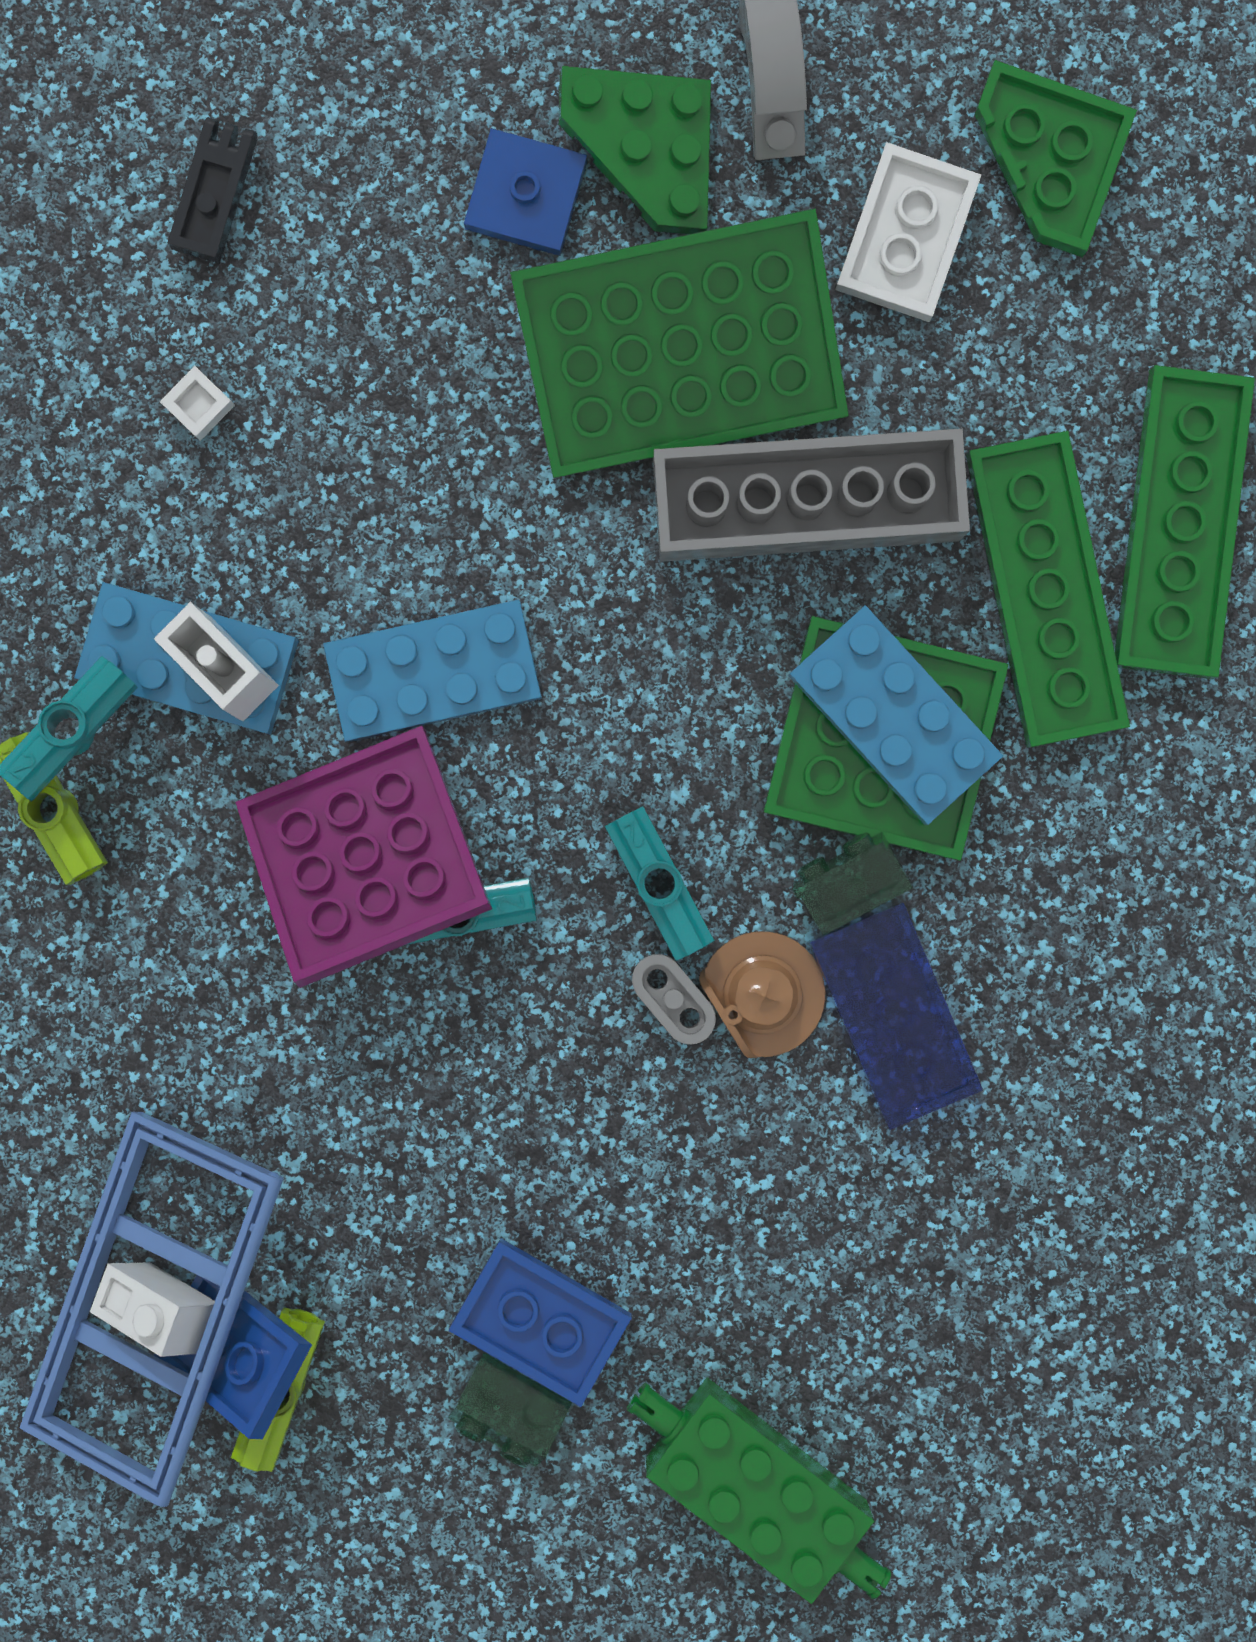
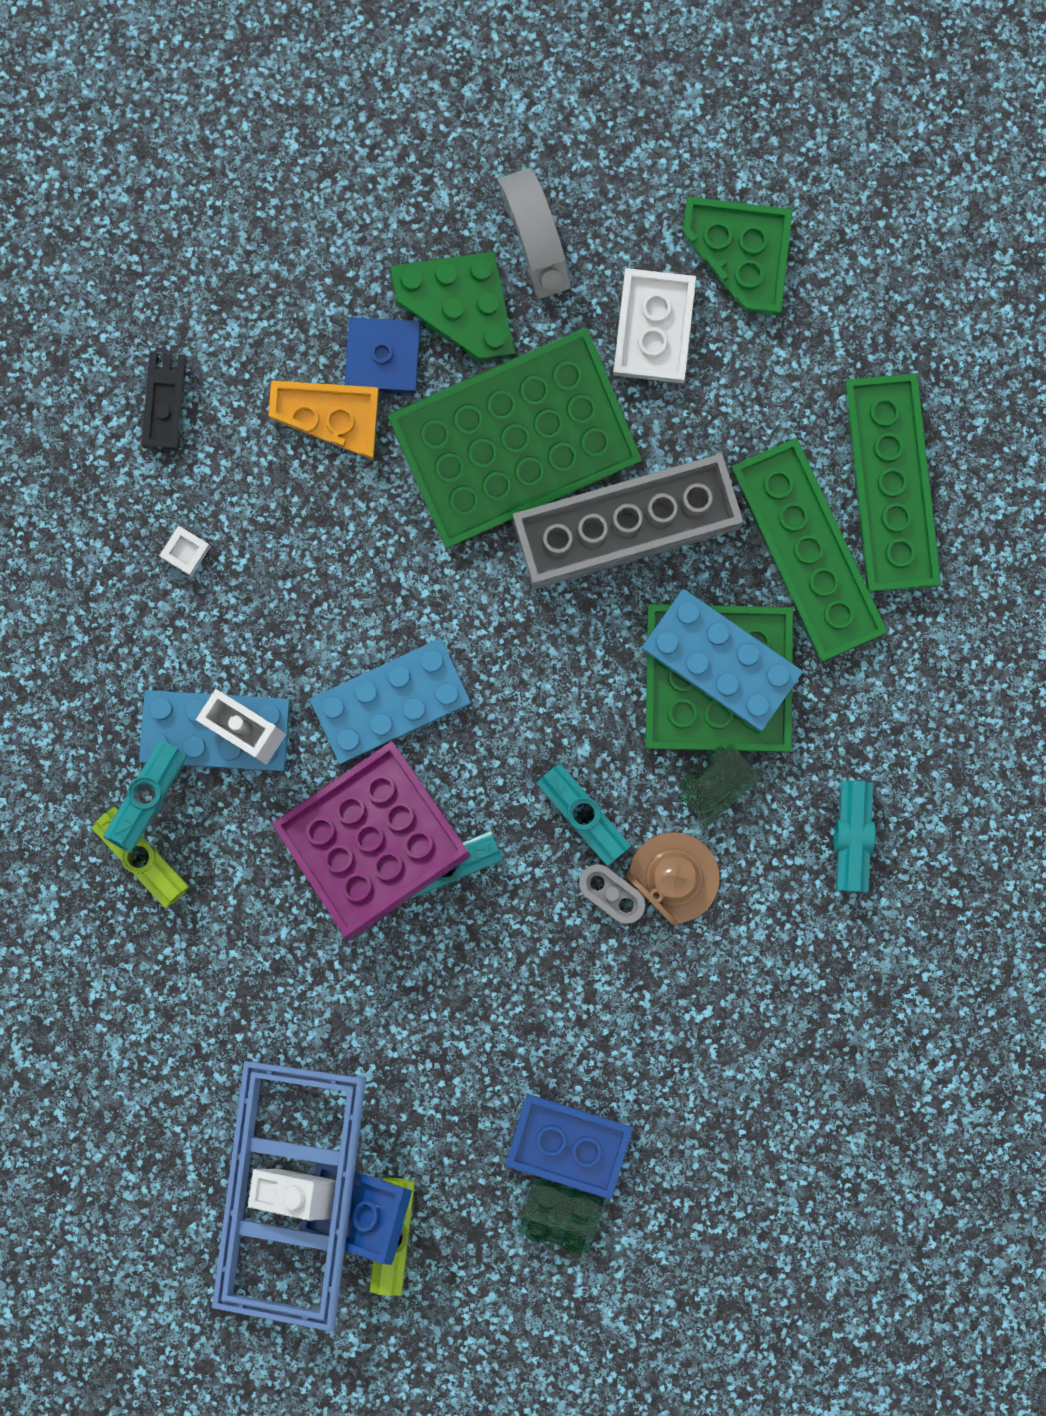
camera: 15 degrees left, 5 degrees down
(434, 254) = (328, 412): none -> light orange wing
(759, 1490) = (751, 1230): green brick -> none
(895, 1015) = (771, 871): clear blue plate -> none
(1019, 994) = (854, 836): none -> teal piece

